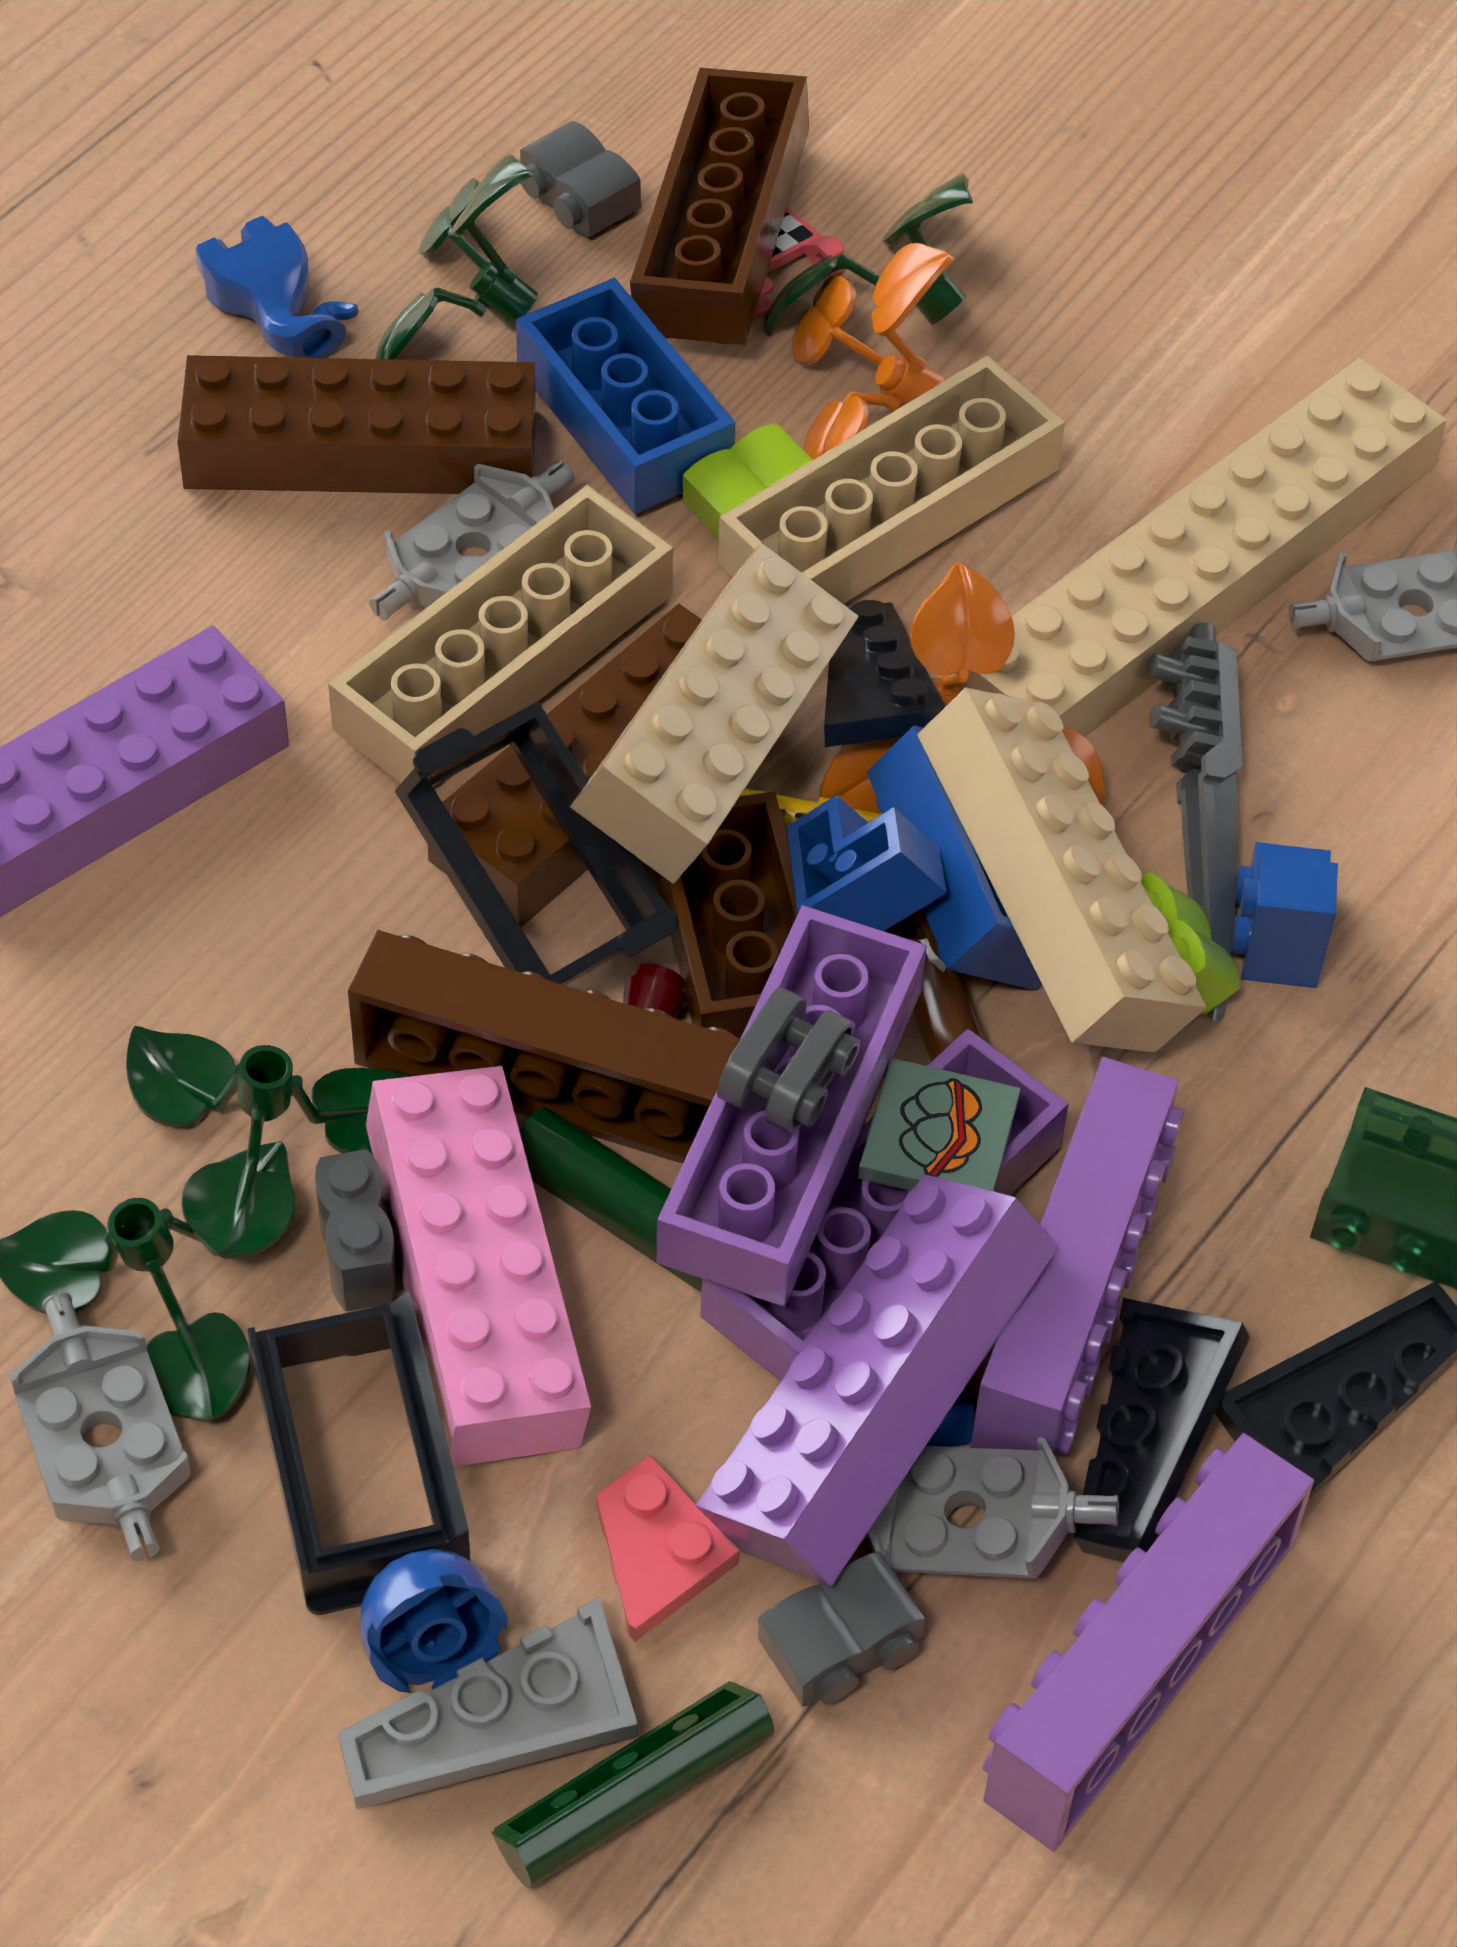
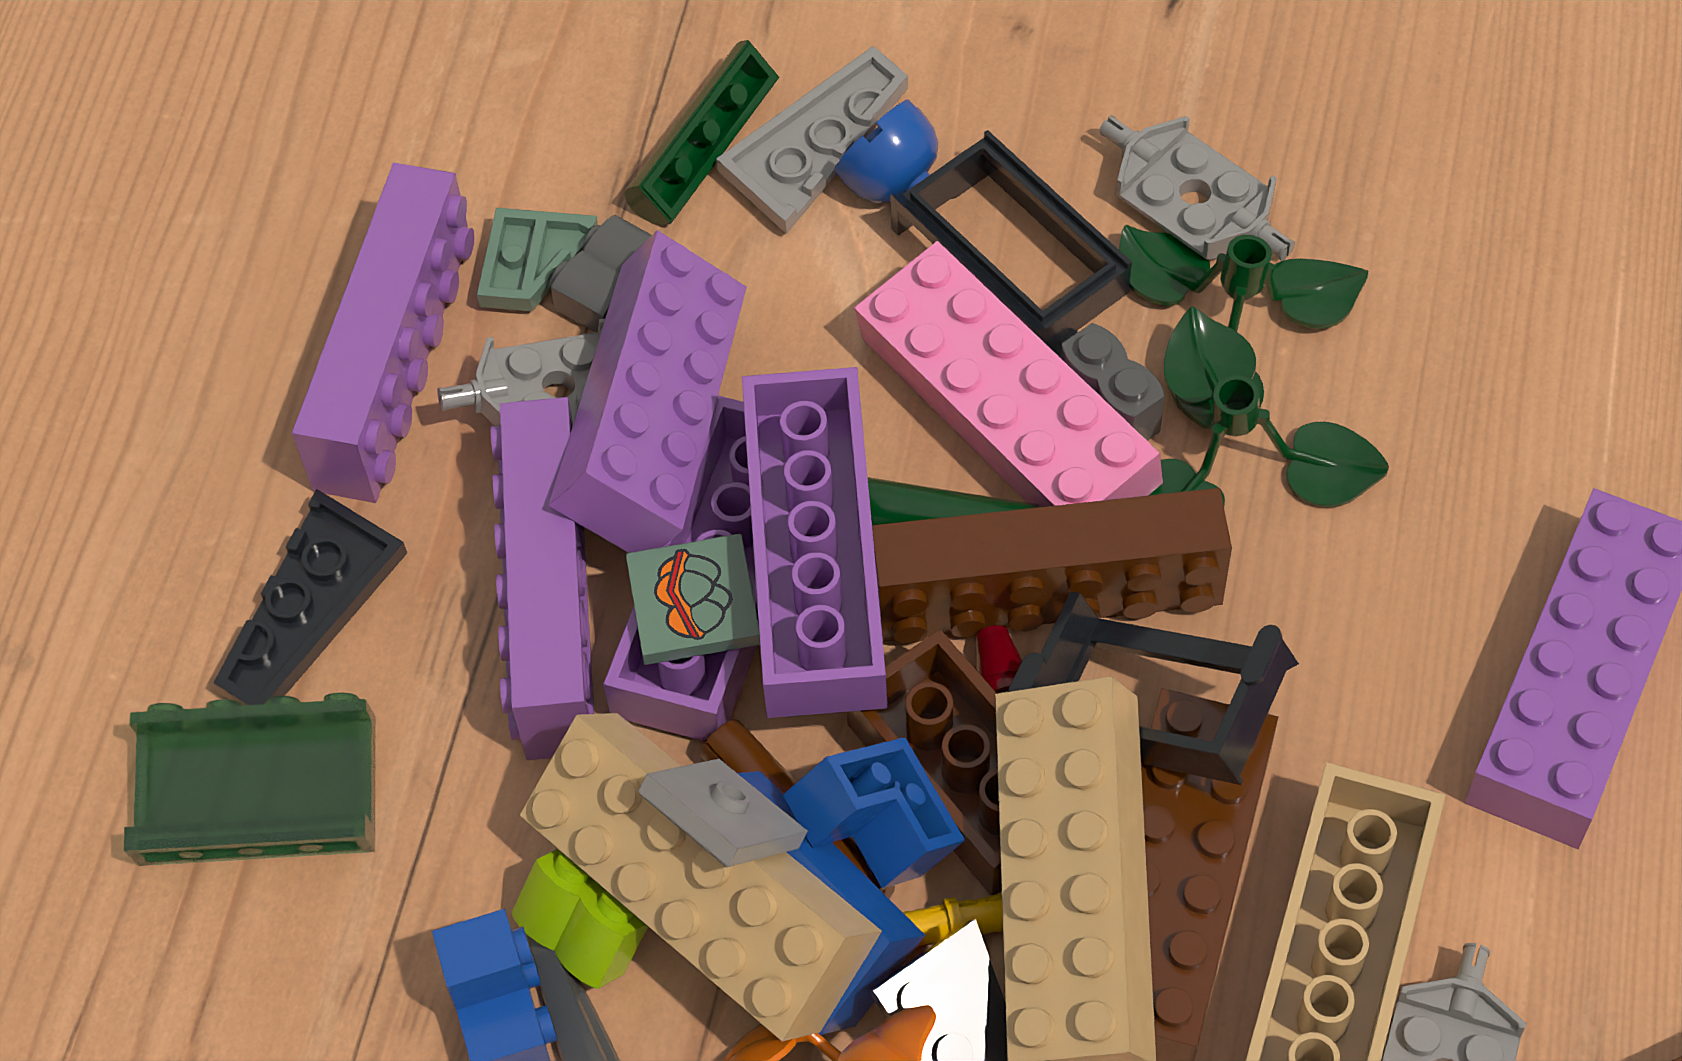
camera: 160 degrees right, 5 degrees up
(658, 1545) = (778, 291): coral wing -> none
(800, 1091) = (794, 479): dark grey brick -> none
(925, 1709) = (525, 253): none -> sand green wing
(1023, 841) = (722, 812): none -> light grey plate
(1157, 1412) = (444, 513): black wing -> none

